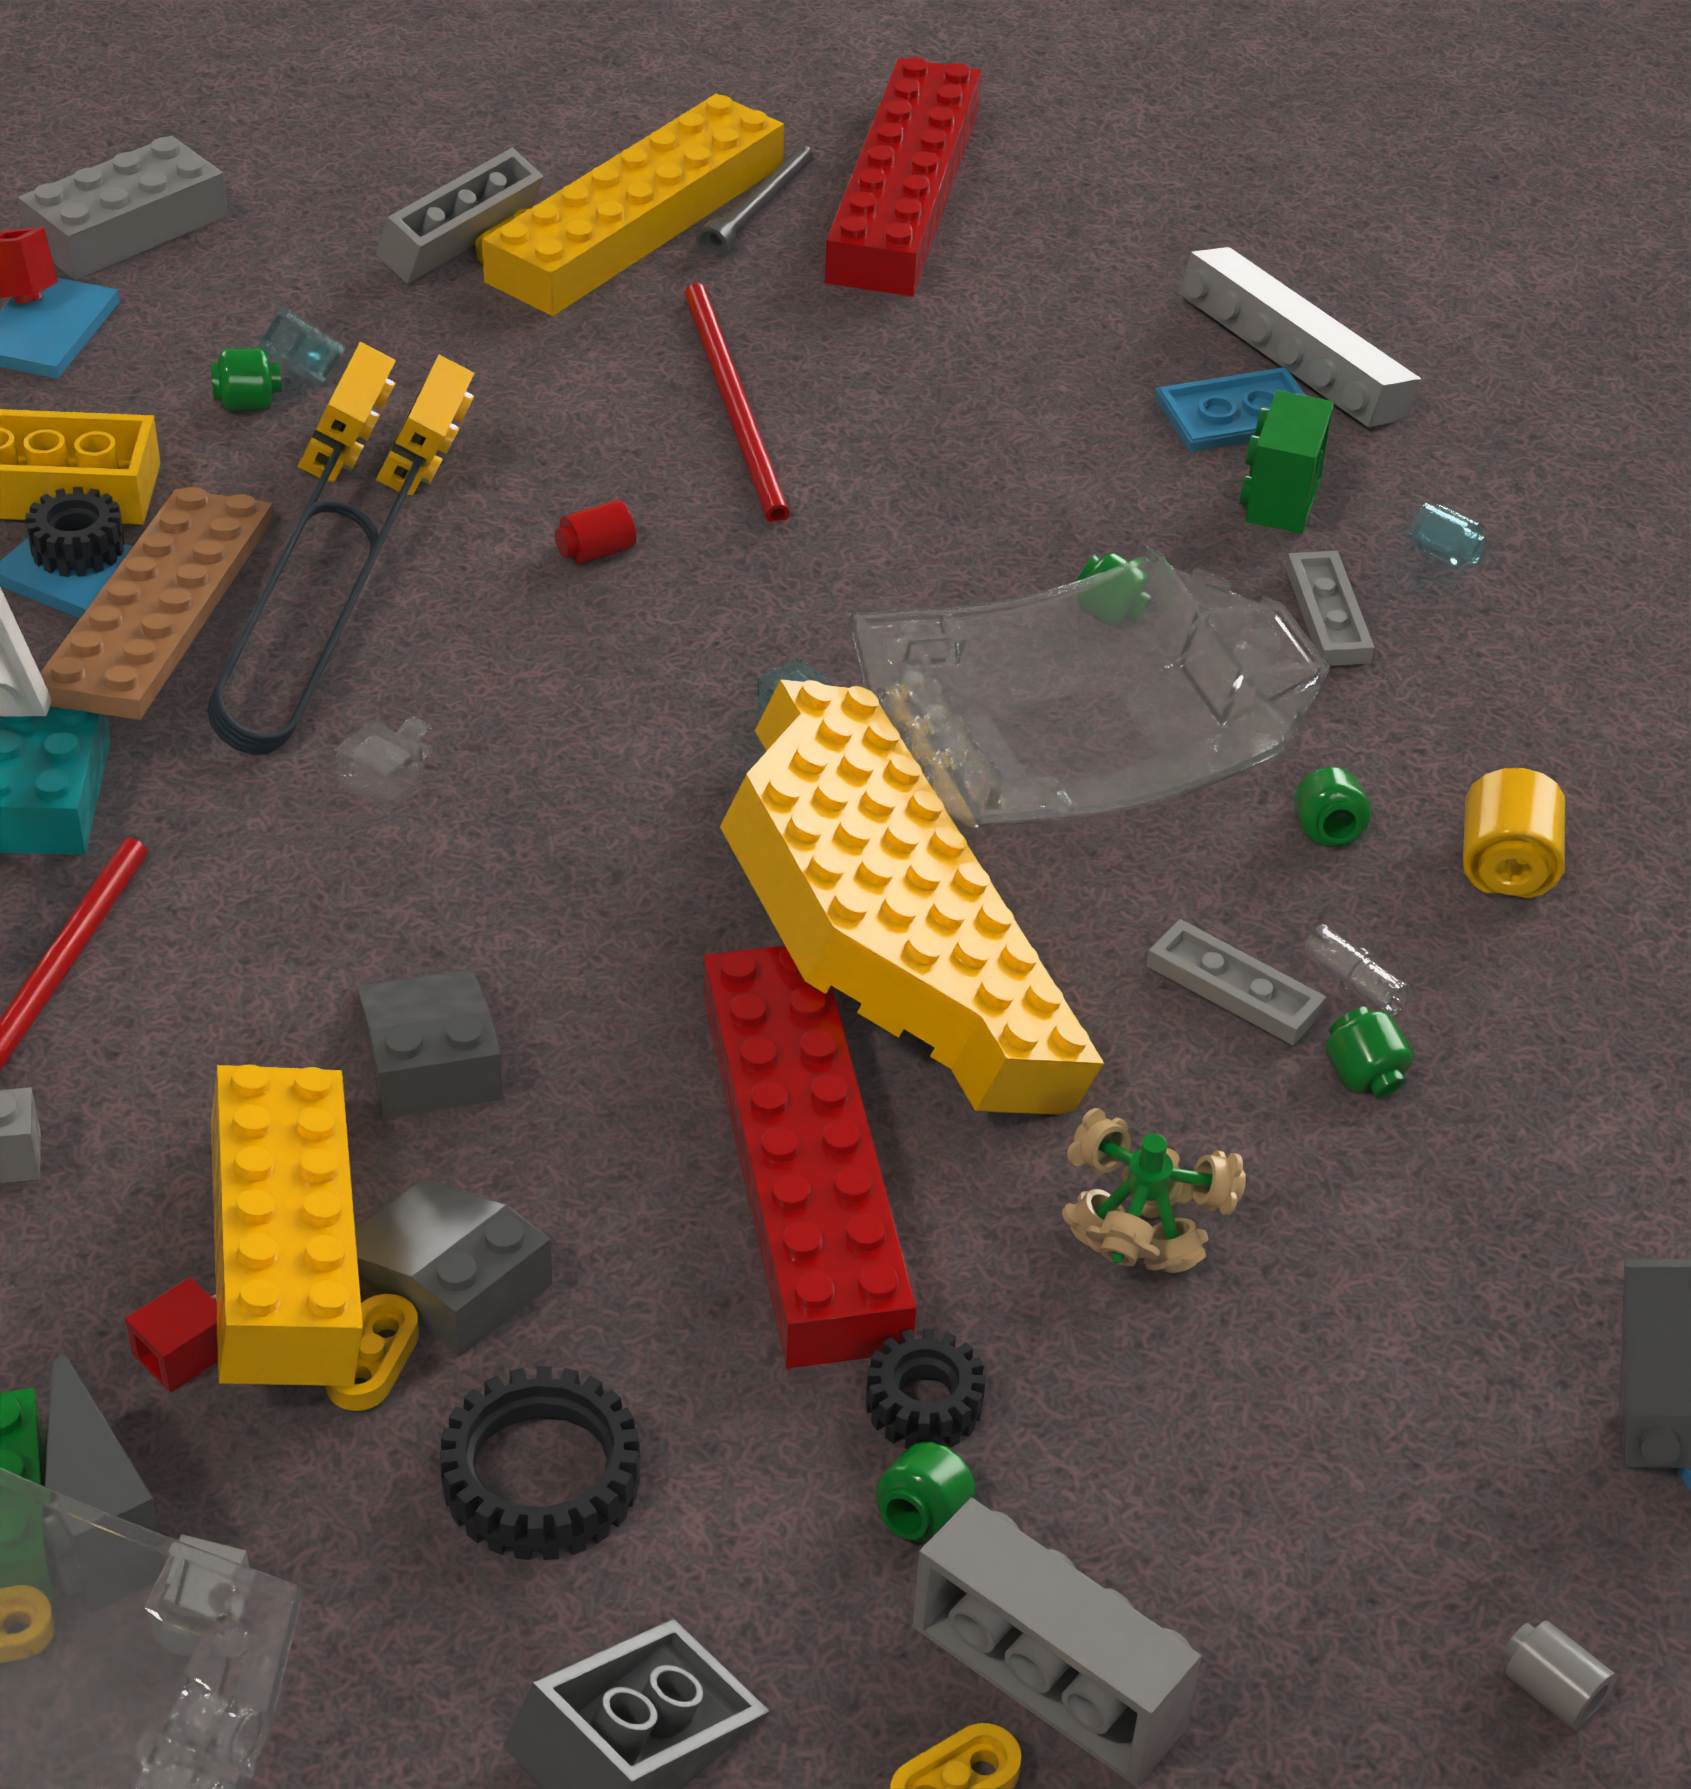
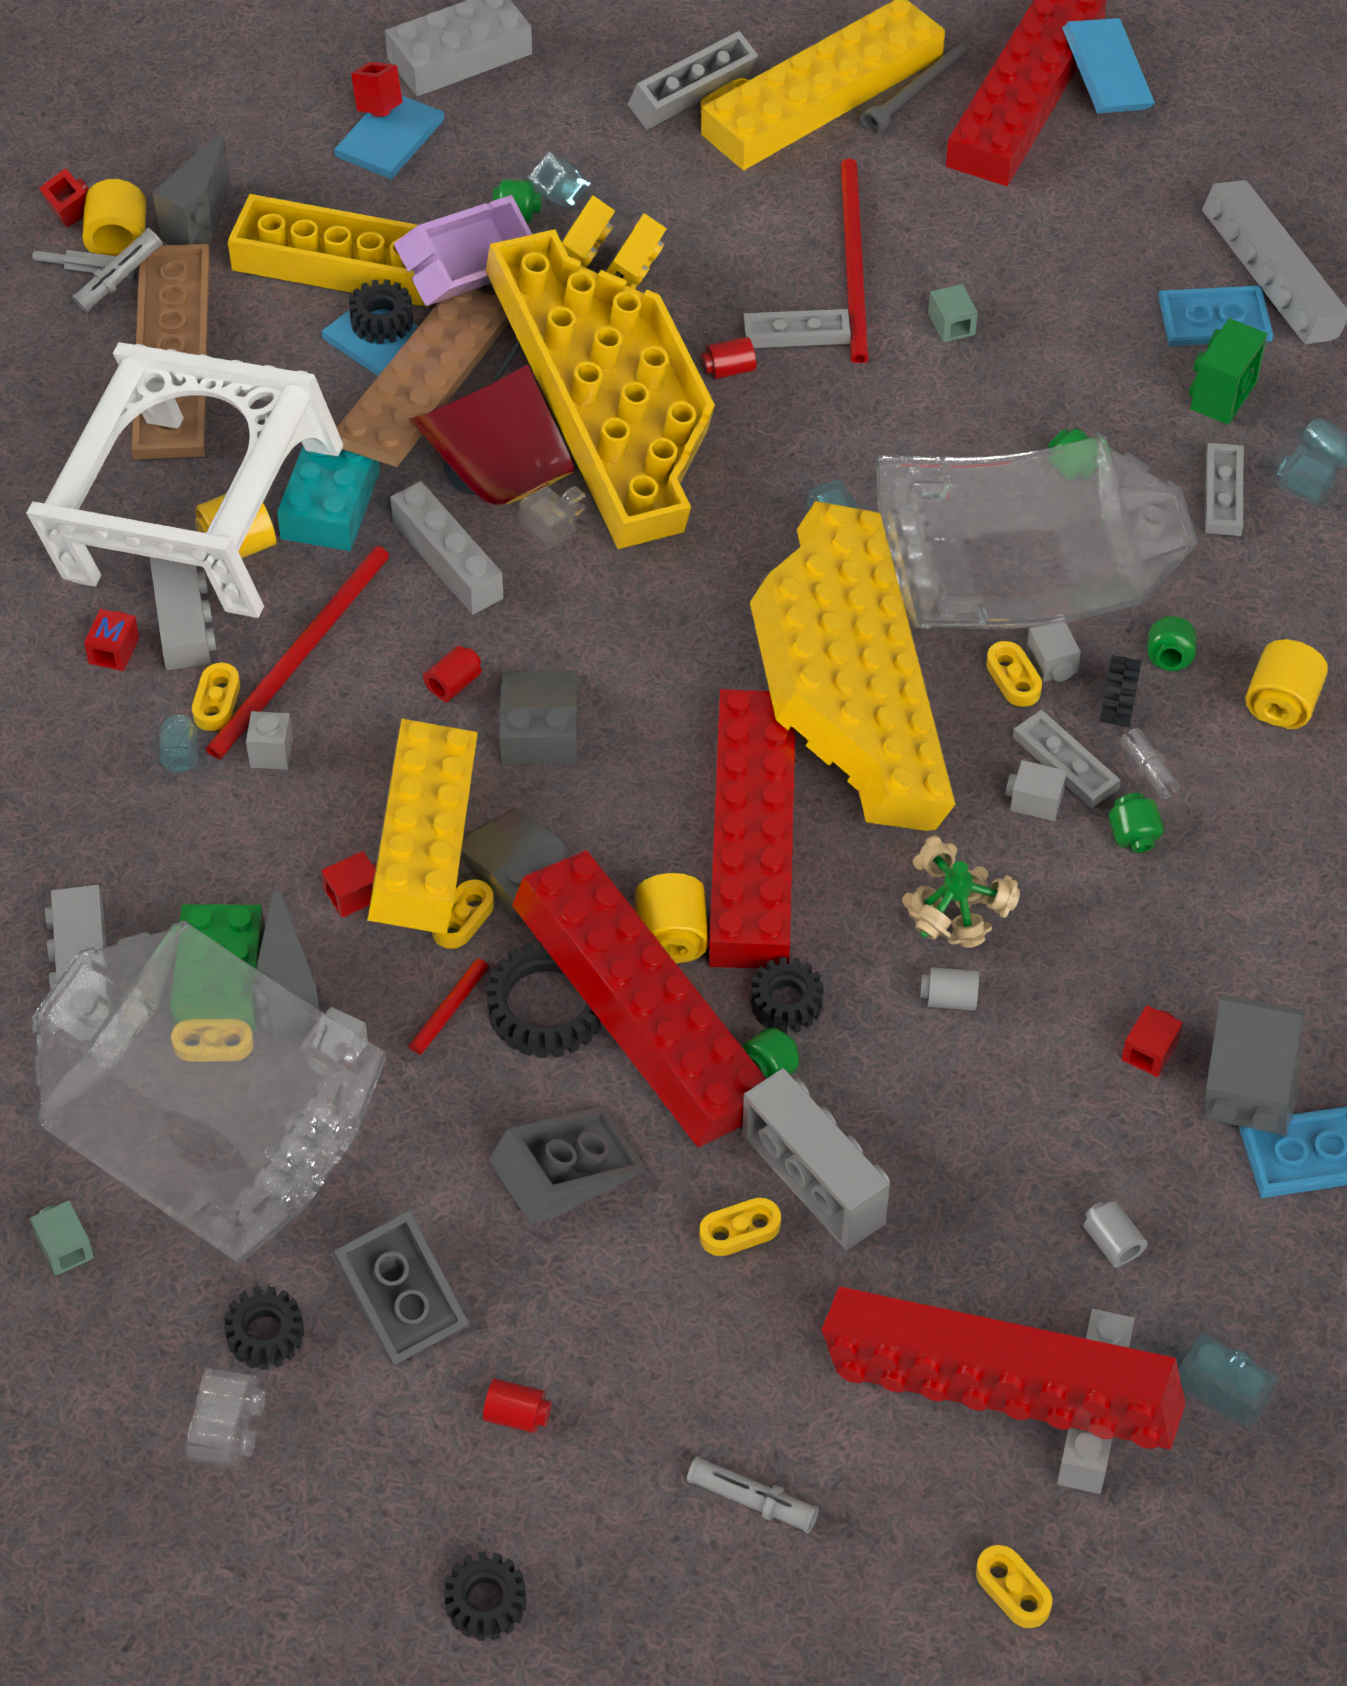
camera: 15 degrees right, 10 degrees up
(190, 432) = (454, 250): none -> lavender piece
(236, 825) = (447, 547): none -> light grey brick
(280, 997) = (453, 673): none -> red brick
(291, 666) = (500, 439): none -> dark red piece
(377, 1504) = (448, 1006): none -> red bar
(437, 569) = (611, 379): none -> yellow brick
(683, 486) = (797, 328): none -> light grey plate
(702, 1429) = (639, 995): none -> red brick
(714, 1300) = (675, 914): none -> yellow piece
(891, 442) = (952, 313): none -> sand green brick
(1006, 143) = (1108, 65): none -> dark azure tile
(1130, 884) = (1017, 675): none -> yellow plate
(1170, 841) = (1053, 652): none -> light grey brick
(1177, 1336) = (950, 988): none -> light grey brick
(1210, 1029) = (1036, 790): none -> light grey brick
(1287, 875) = (1120, 690): none -> black tyre
(1434, 575) = (1307, 474): none -> clear light blue brick
(1507, 1362) = (1152, 1040): none -> red brick

